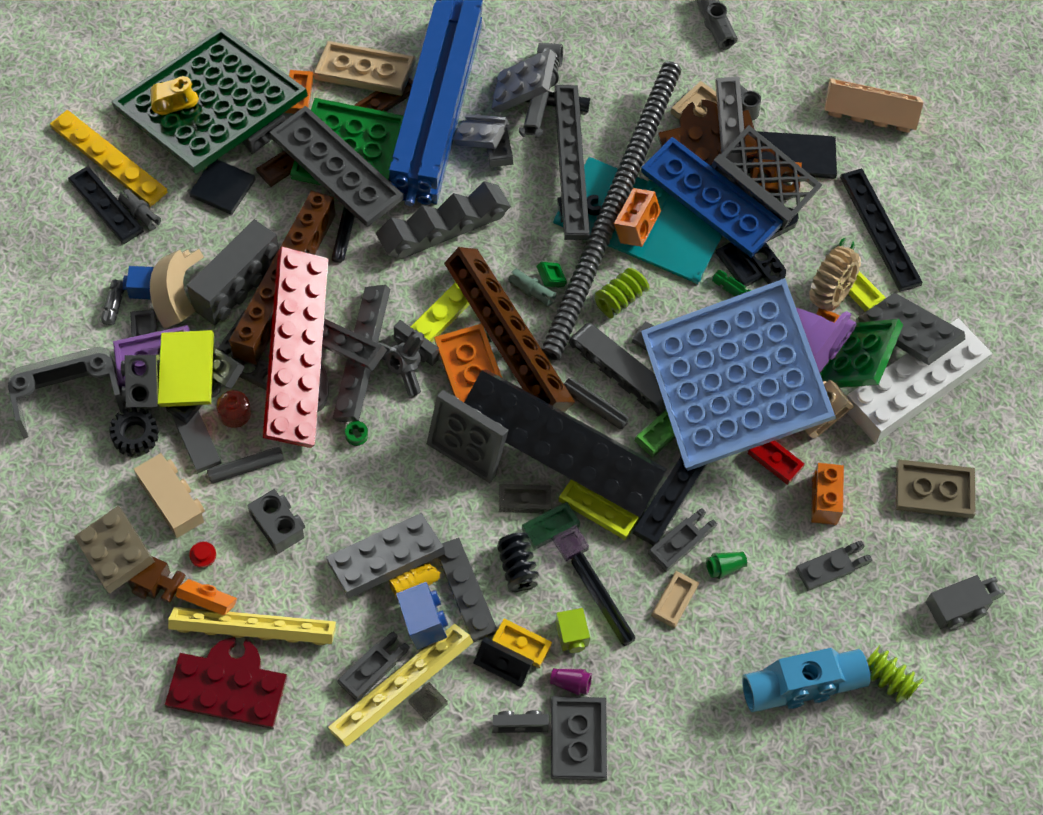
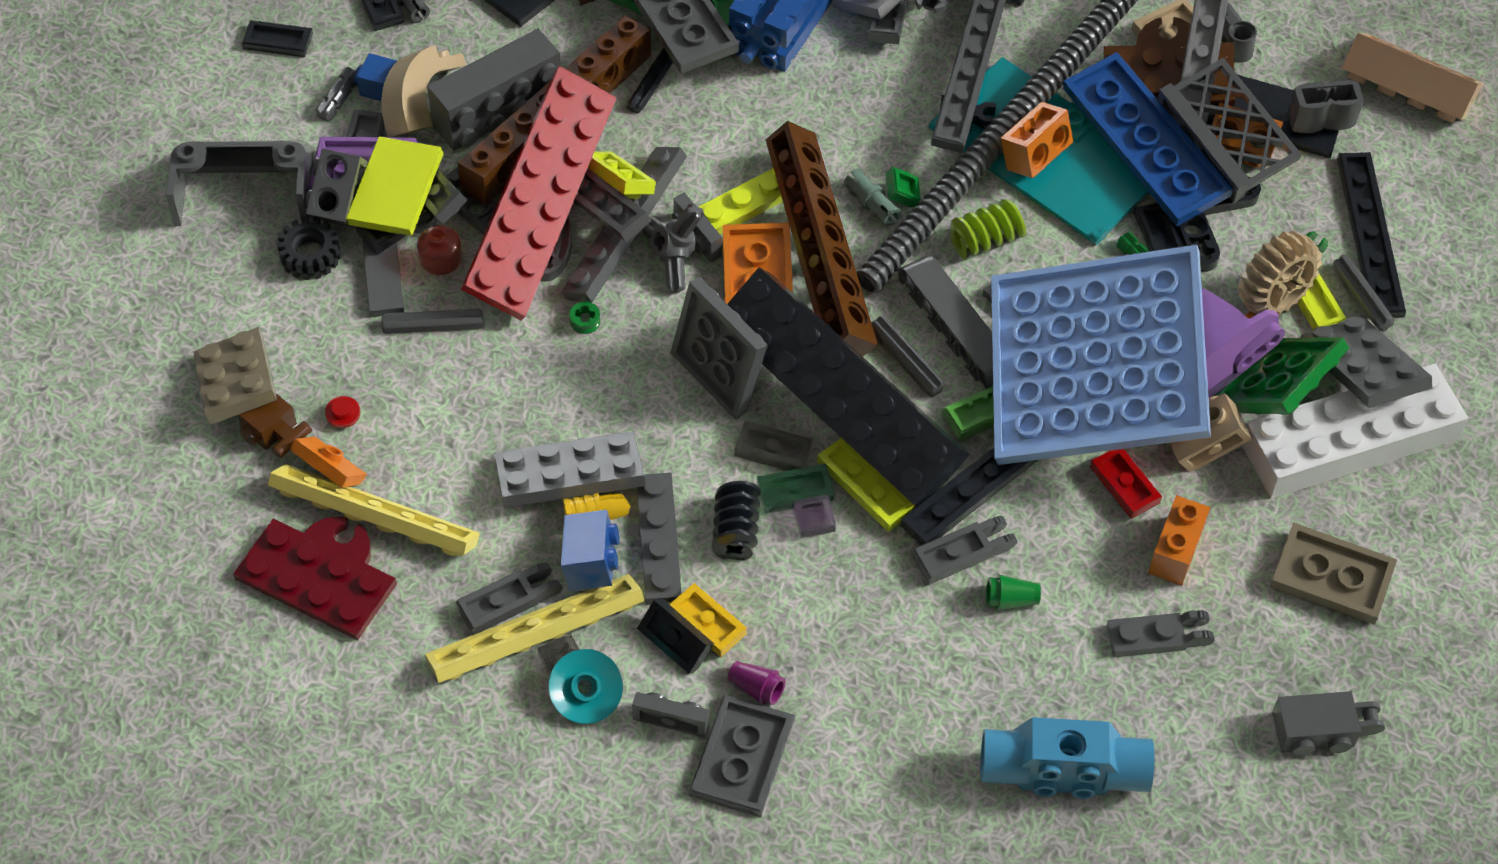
camera: 20 degrees right, 5 degrees down
(51, 268) = (277, 38): none -> black tile
(170, 494) = (326, 331): tan brick -> none
(272, 523) = (443, 396): dark grey brick -> none
(350, 317) = (621, 174): none -> neon yellow plate
(453, 218) = (797, 91): dark grey brick -> none
(466, 719) = (603, 678): none -> teal dish
(572, 630) = (778, 620): lime brick -> none
(603, 599) = (833, 596): black axle -> none
(675, 599) = (929, 620): tan tile -> none
(825, 143) = (1325, 106): none -> dark grey brick
(891, 275) = (1363, 293): none -> dark grey axle
(892, 676) = (1187, 789): lime piece -> none

